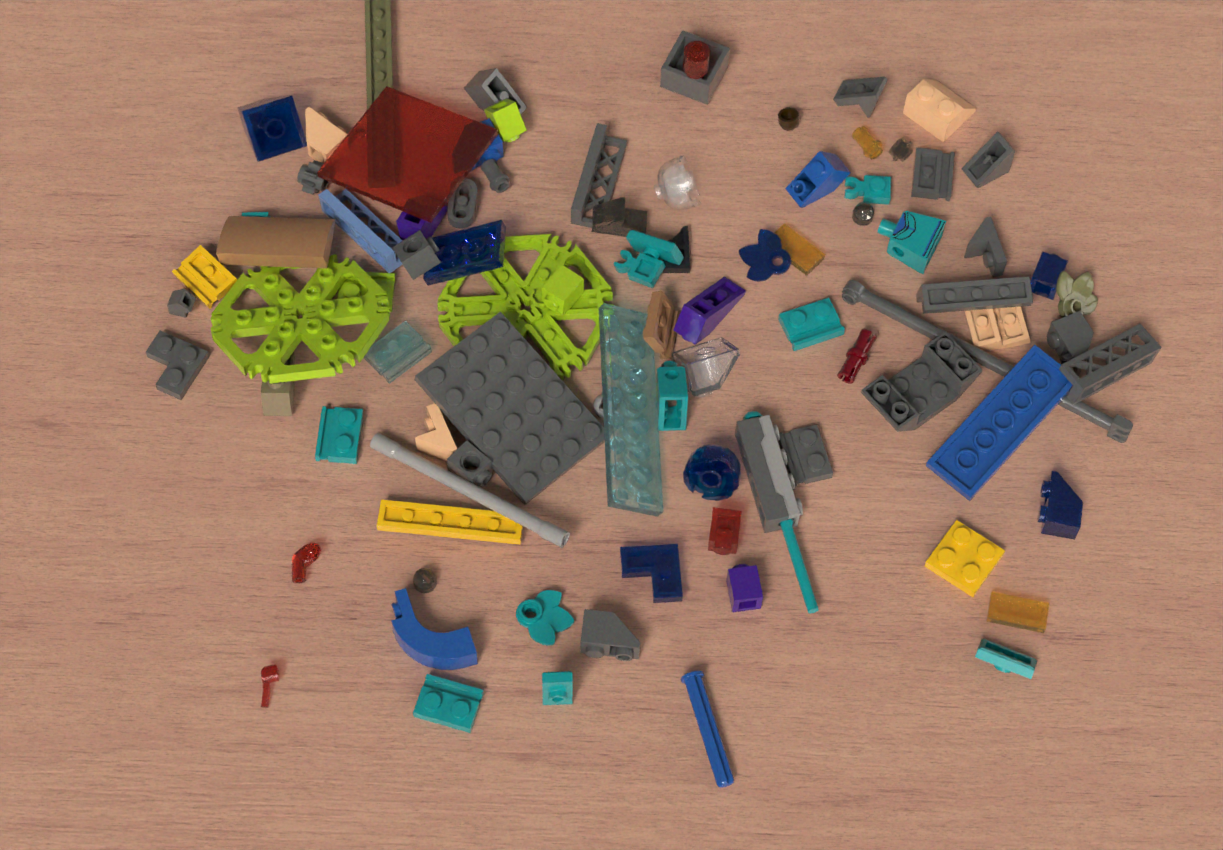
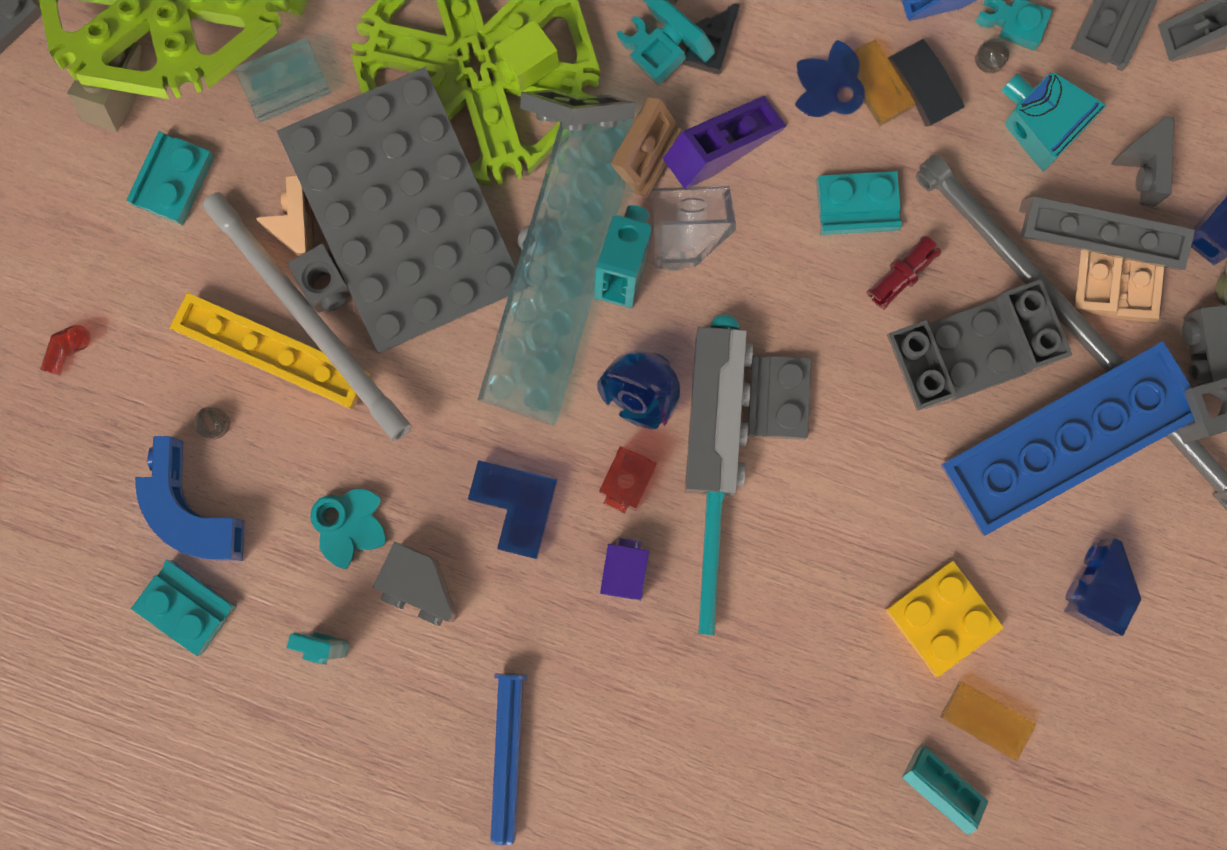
camera: 25 degrees right, 20 degrees up
(611, 310) = (577, 111): none -> dark grey plate
(827, 239) = (926, 82): none -> black slope

